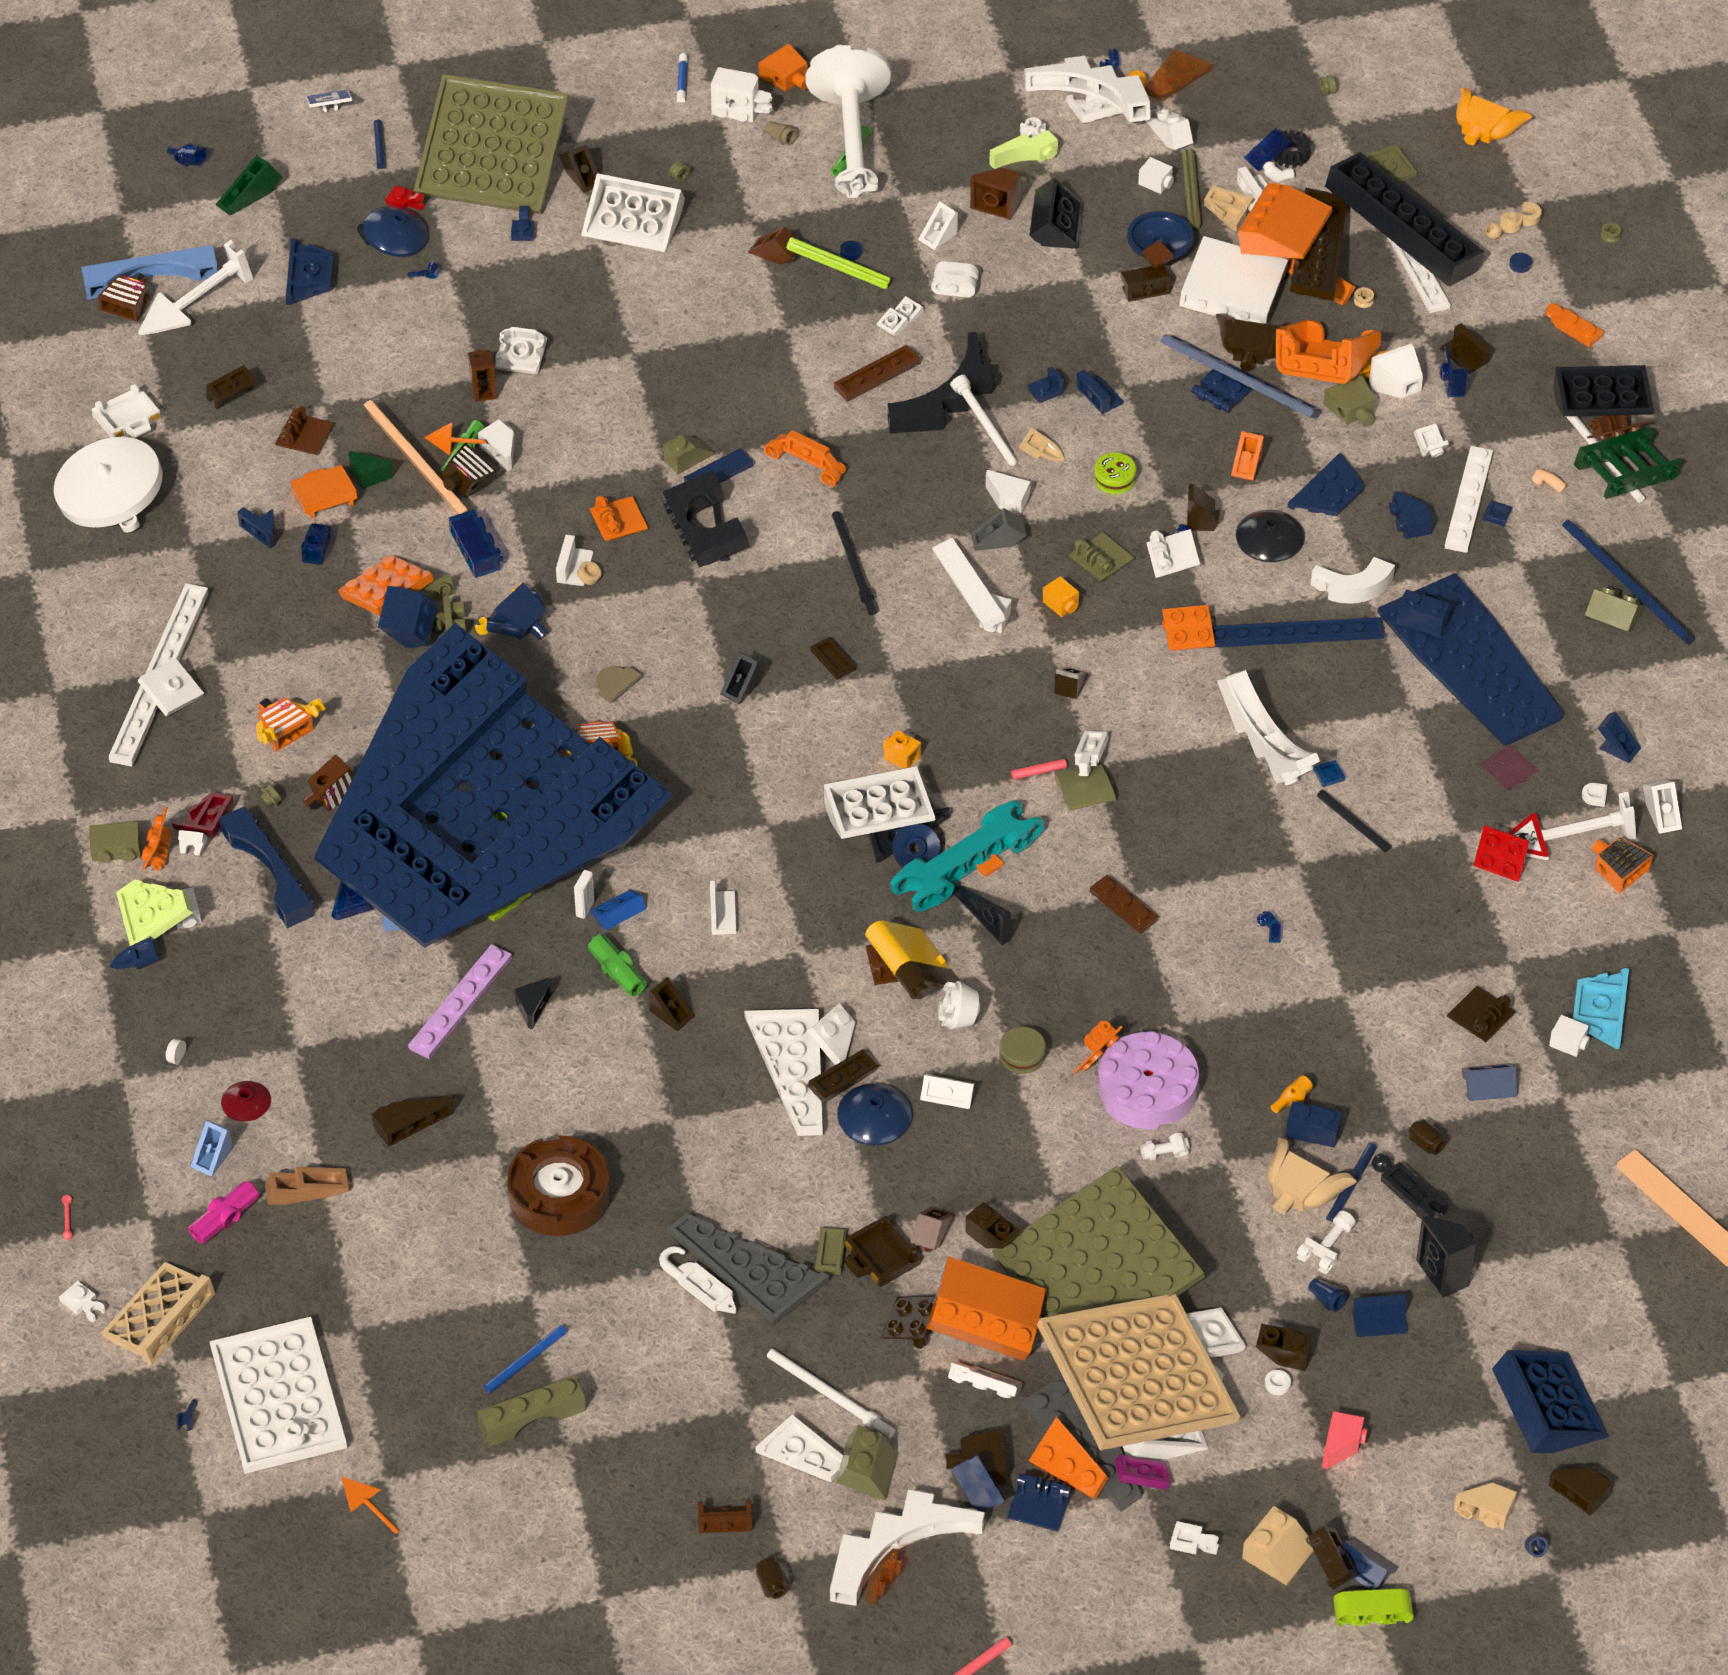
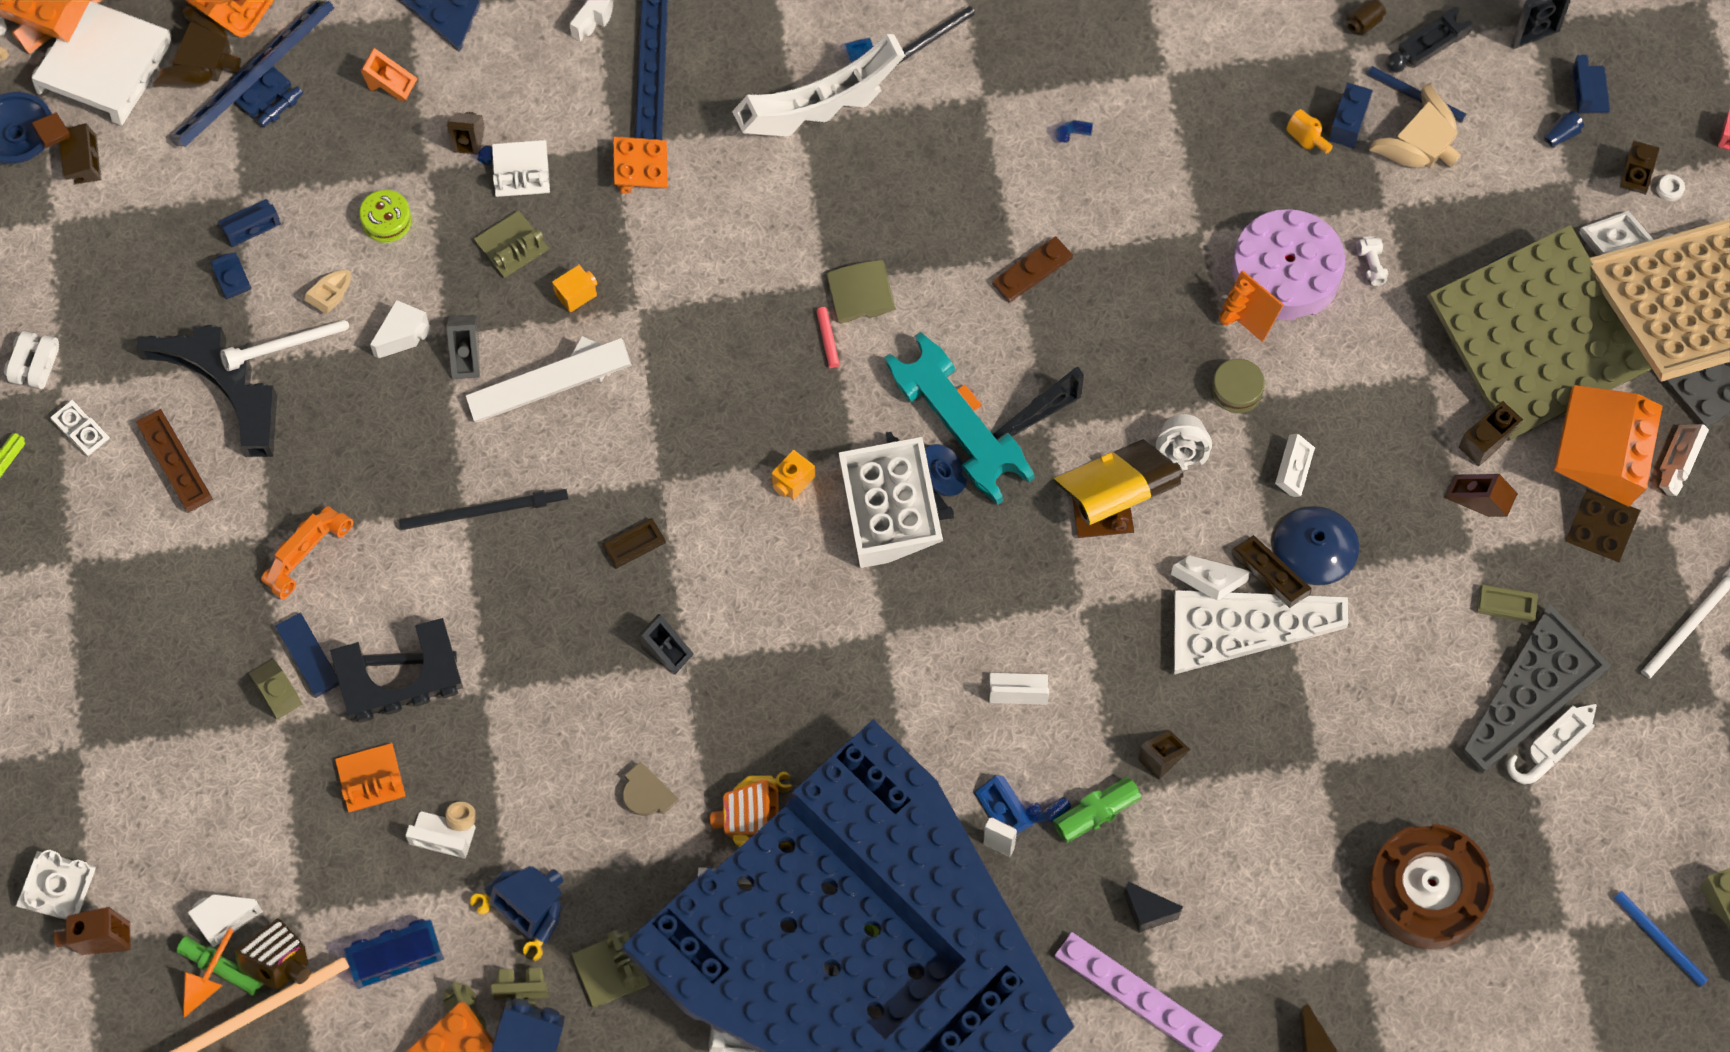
camera: 85 degrees left, 15 degrees up
(611, 933) = (1055, 810): none -> clear blue arm
(880, 1252) = (1512, 551): dark brown piece -> none
(1069, 682) = (702, 289): dark brown slope -> none
(1090, 750) = (815, 277): white hinge -> none
(1270, 536) = (504, 83): black dish -> none
(1343, 1222) = (1504, 140): white bar -> none

